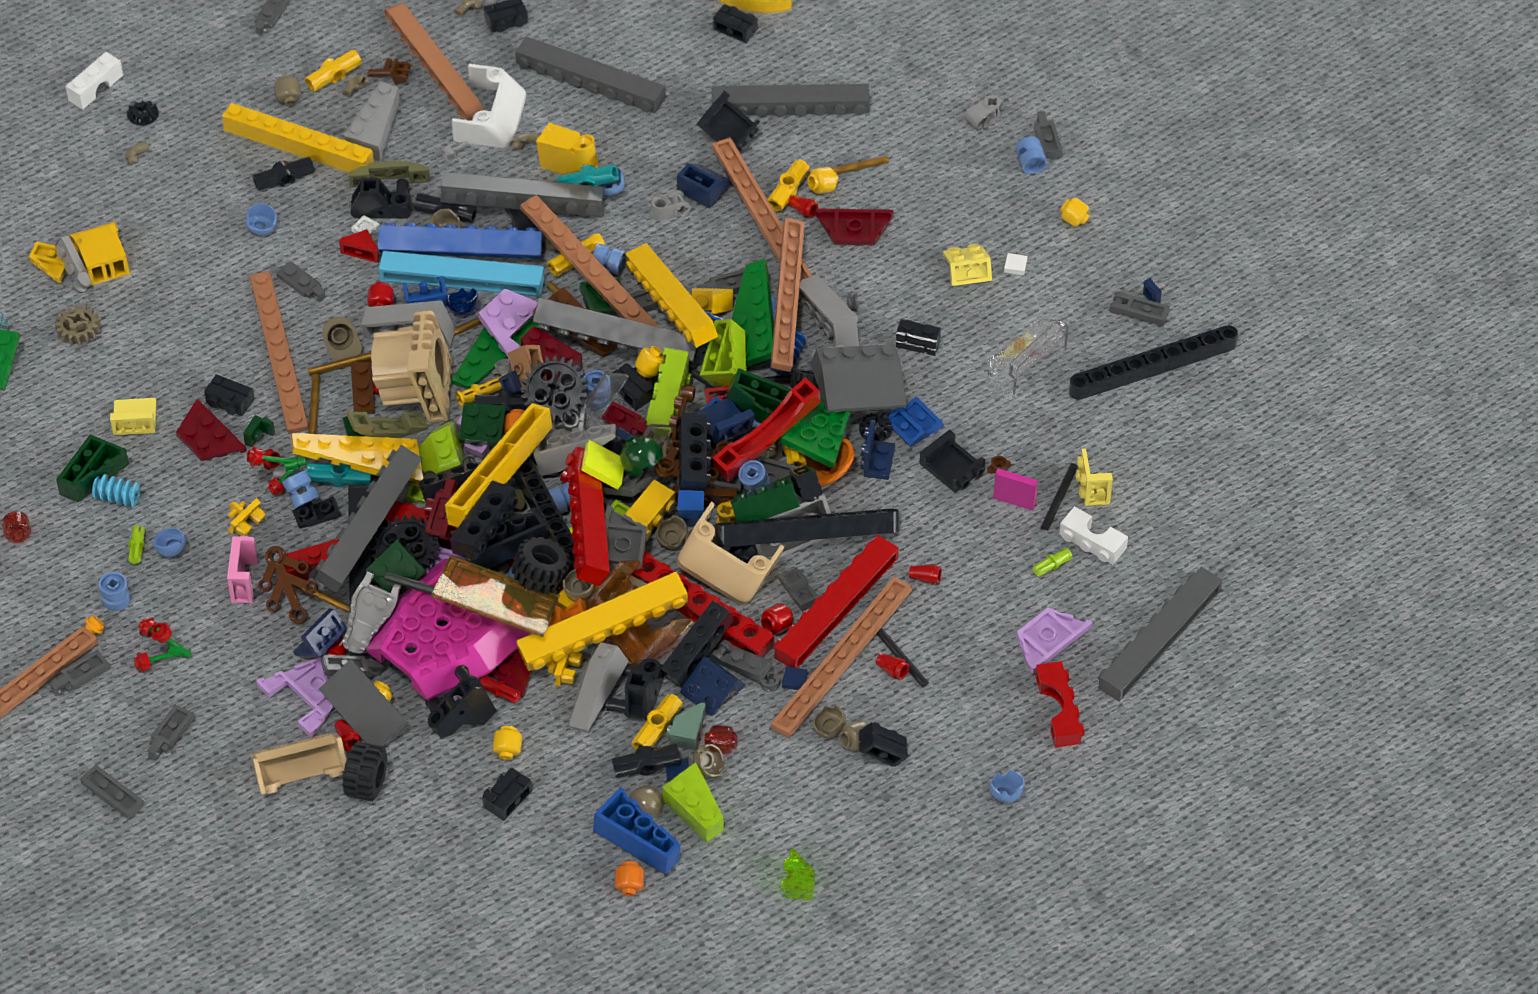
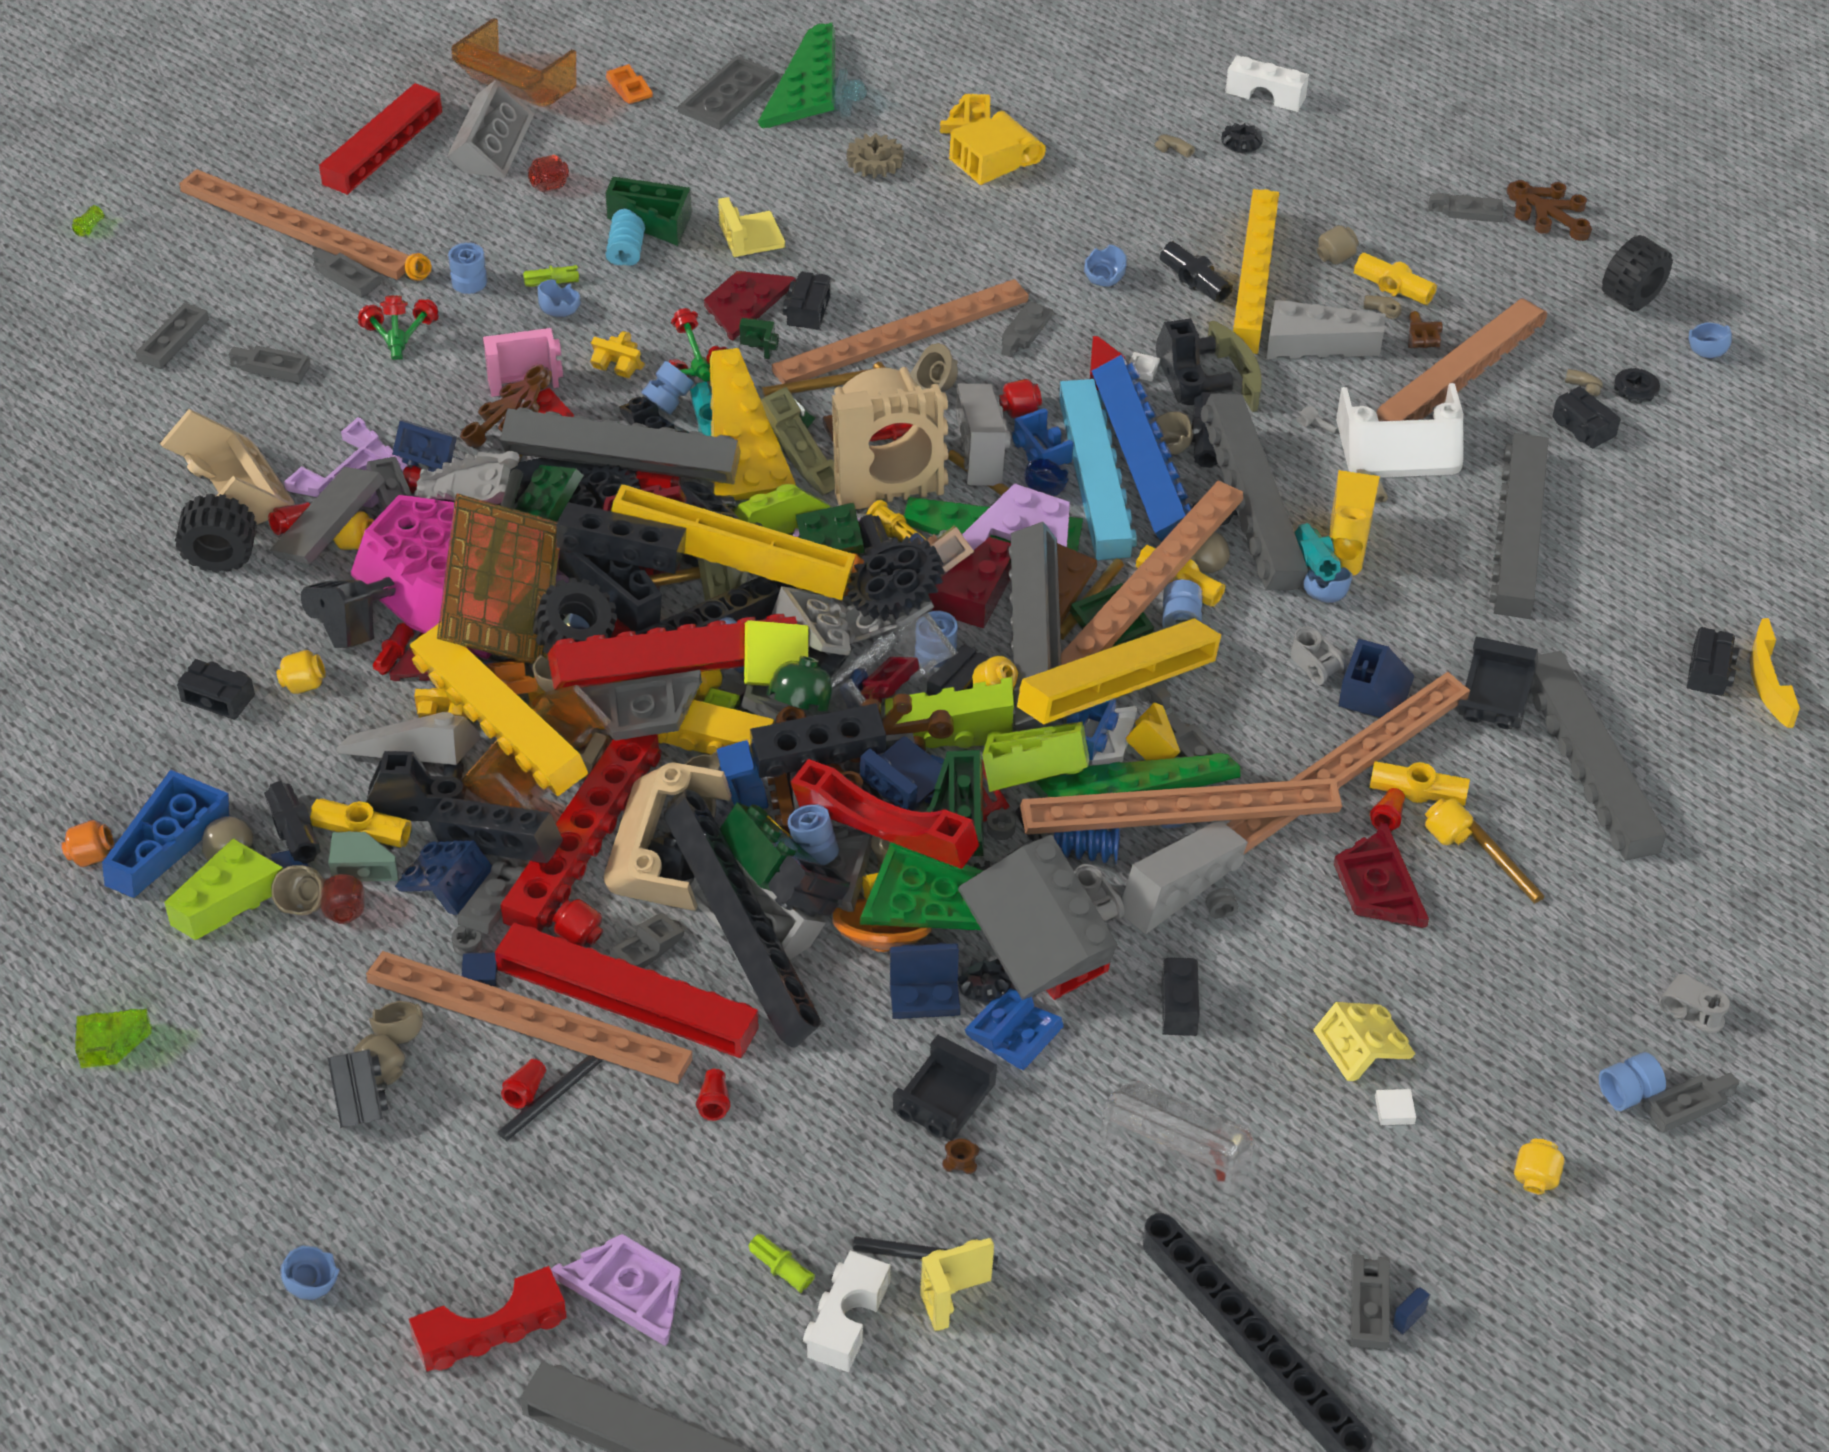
camera: 75 degrees right, 5 degrees down
(73, 264) = (972, 112): light grey hinge -> none
(1015, 489) = (900, 1174): dark pink tile -> none

